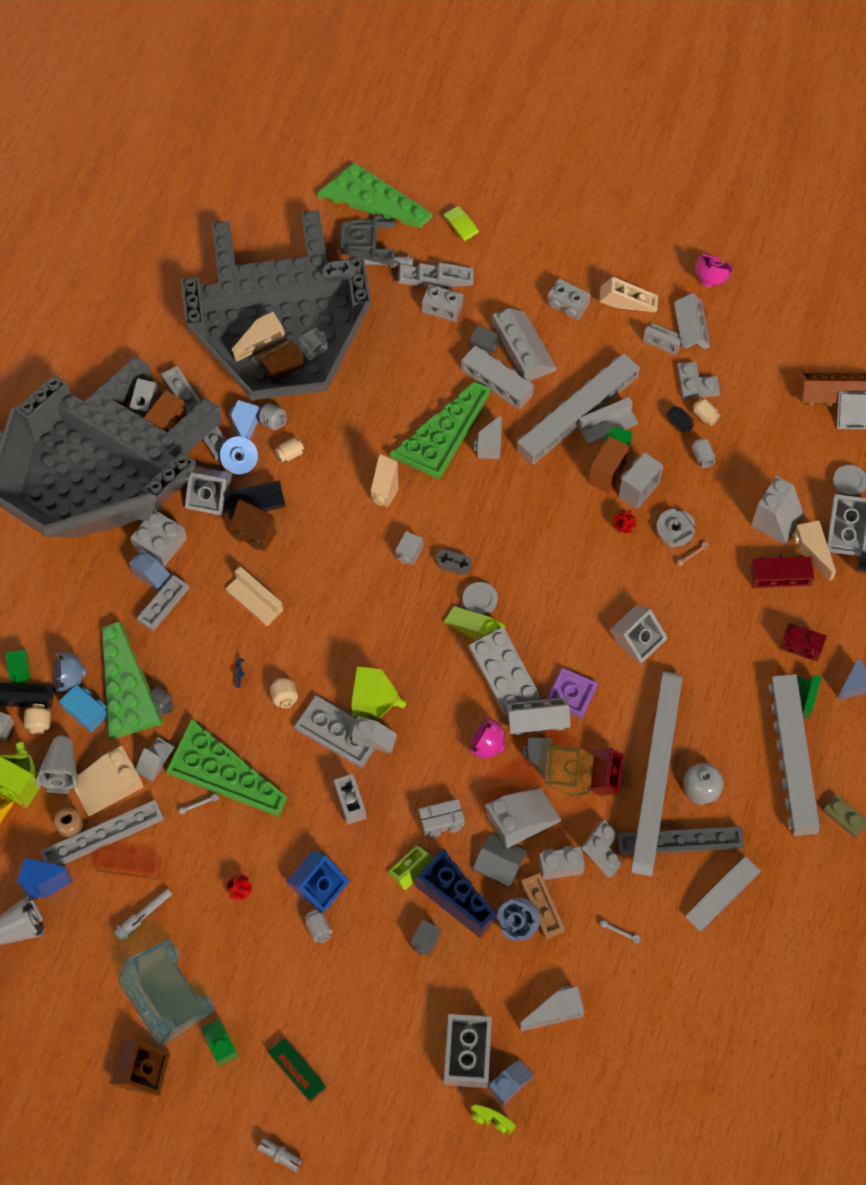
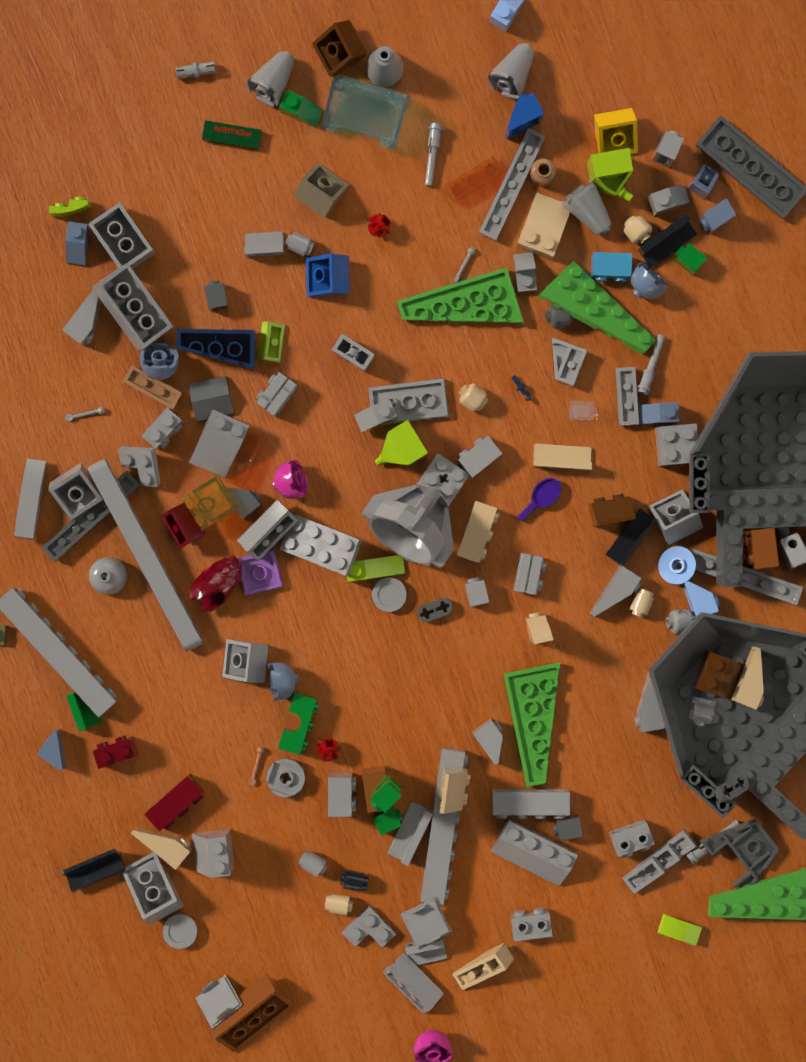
camera: 140 degrees right, 25 degrees up
(116, 1021) = (384, 67): none -> light grey cone
(132, 606) = (648, 375): none -> light grey pin
(185, 664) = (567, 361): none -> light grey wing
(208, 618) = (582, 411): none -> clear brick
(219, 1086) = (271, 79): none -> light grey cone
(261, 956) = (321, 190): none -> dark tan slope
(294, 580) = (543, 495): none -> dark purple piece
(298, 472) = (619, 587): none -> light grey slope
(318, 645) = (479, 456): none -> light grey brick
(348, 951) = (264, 244): none -> light grey panel
(350, 376) = (648, 711): none -> light grey slope
(356, 532) = (529, 574): none -> light grey brick
(369, 591) = (478, 532): none -> tan brick
(407, 621) = (421, 512): none -> light grey plate
(506, 980) = (132, 306): none -> light grey slope
(550, 417) = (453, 789): none -> tan slope
(604, 437) = (385, 794): none -> green arch
(613, 705) = (216, 583): none -> dark red head
(620, 595) = (282, 680): none -> sand blue cylinder
(645, 547) = (304, 707): none -> green arch
(647, 349) = (426, 922): none -> light grey piece
(678, 869) = (75, 491): none -> light grey slope

